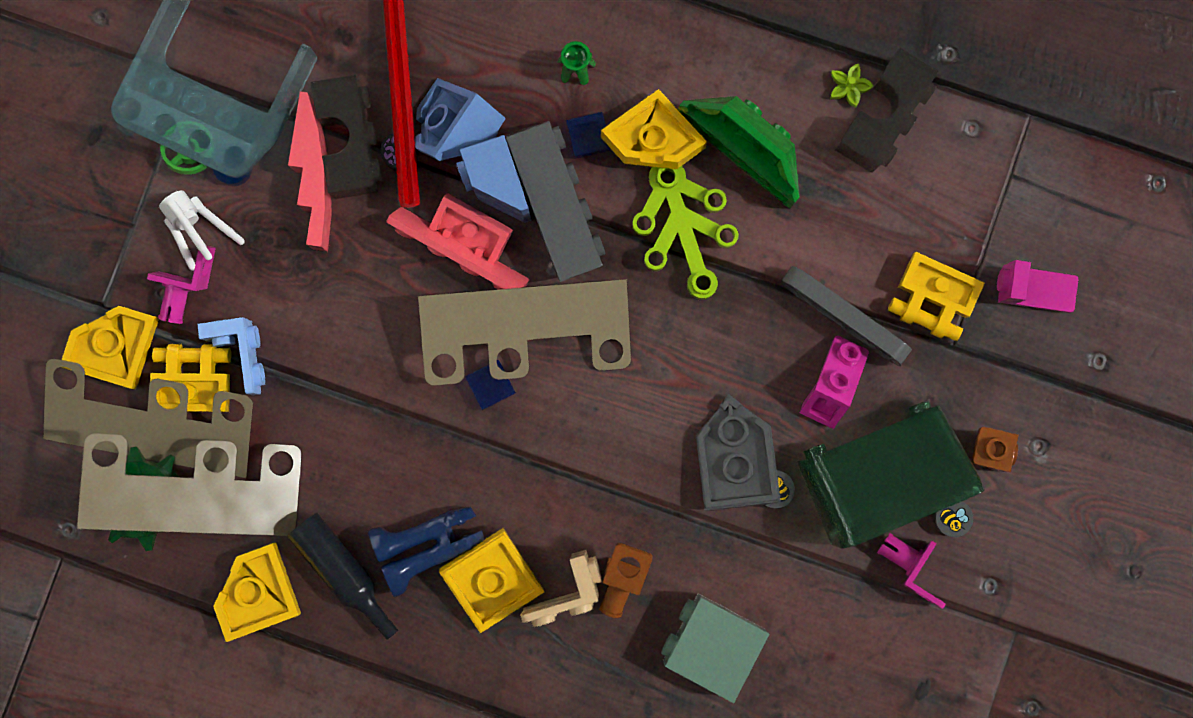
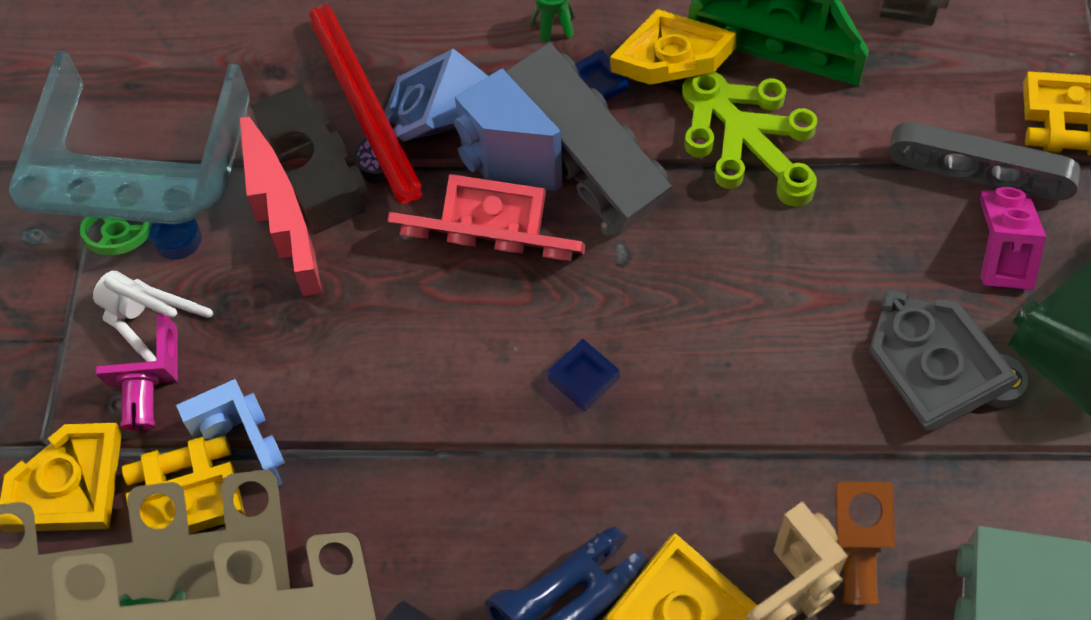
camera: 10 degrees left, 25 degrees down
(521, 314) = (587, 274): dark tan piece -> none

